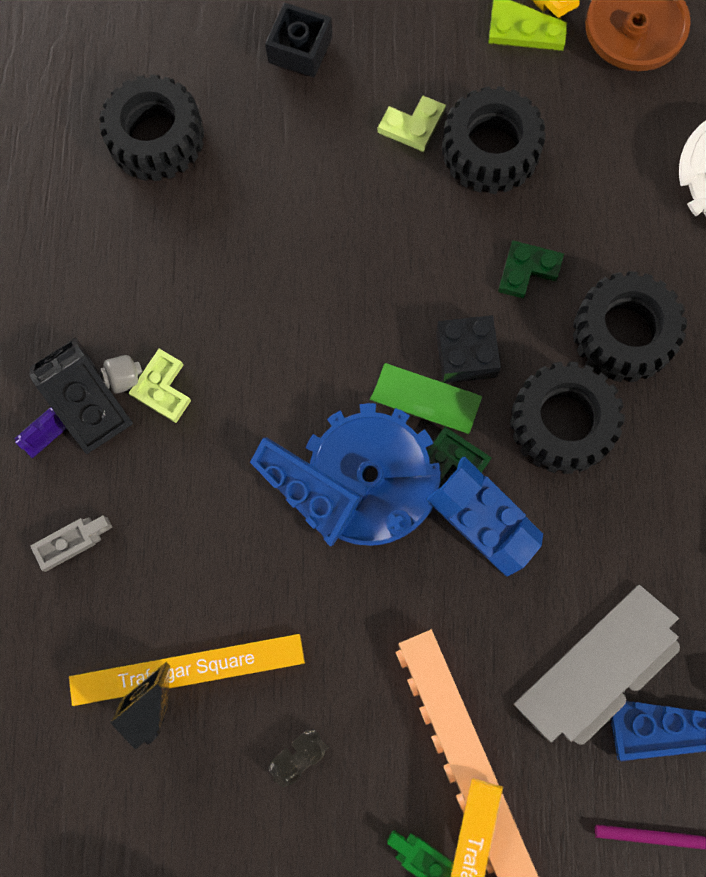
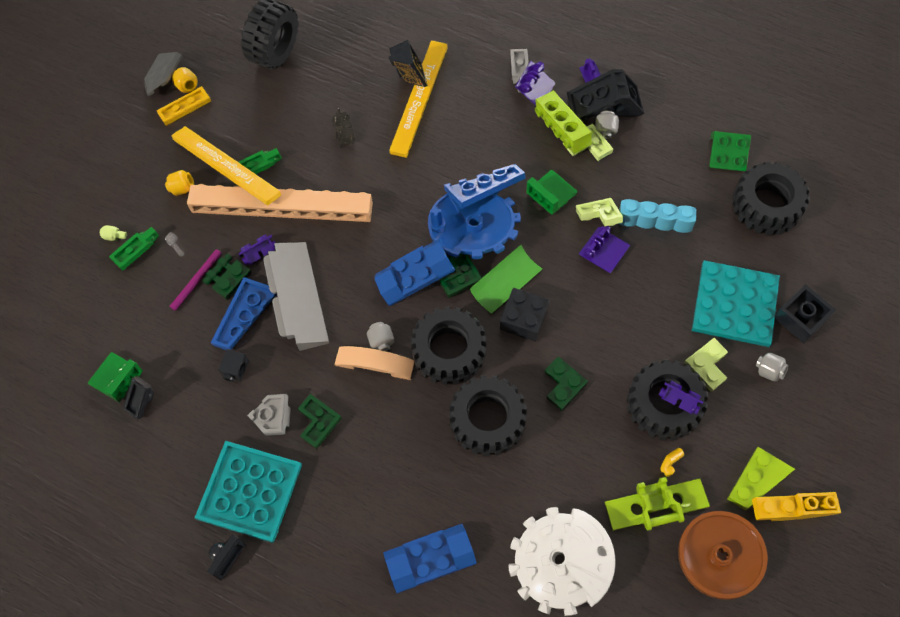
camera: 115 degrees right, 10 degrees down
(91, 204) = (729, 151): none -> green bracket
(93, 502) = (534, 82): none -> hinge
(117, 460) = (563, 122): none -> lime brick
(240, 252) = (661, 216): none -> medium azure brick
(261, 320) = (602, 208): none -> yellowish green plate
(264, 400) = (550, 191): none -> green bracket
(316, 123) = (736, 303): none -> teal plate
(318, 299) = (604, 249): none -> dark purple hinge
(384, 53) = (772, 367): none -> light grey head
(495, 99) = (689, 400): none -> dark purple hinge
(559, 116) = (670, 458): none -> yellow arm
(575, 777) = (251, 252): none -> dark purple hinge
(600, 514) = (380, 336): none -> light grey head
(611, 116) = (657, 498): none -> lime piece
(628, 782) = (230, 280): none -> dark green plate
(635, 509) = (375, 360): none -> light nougat slope

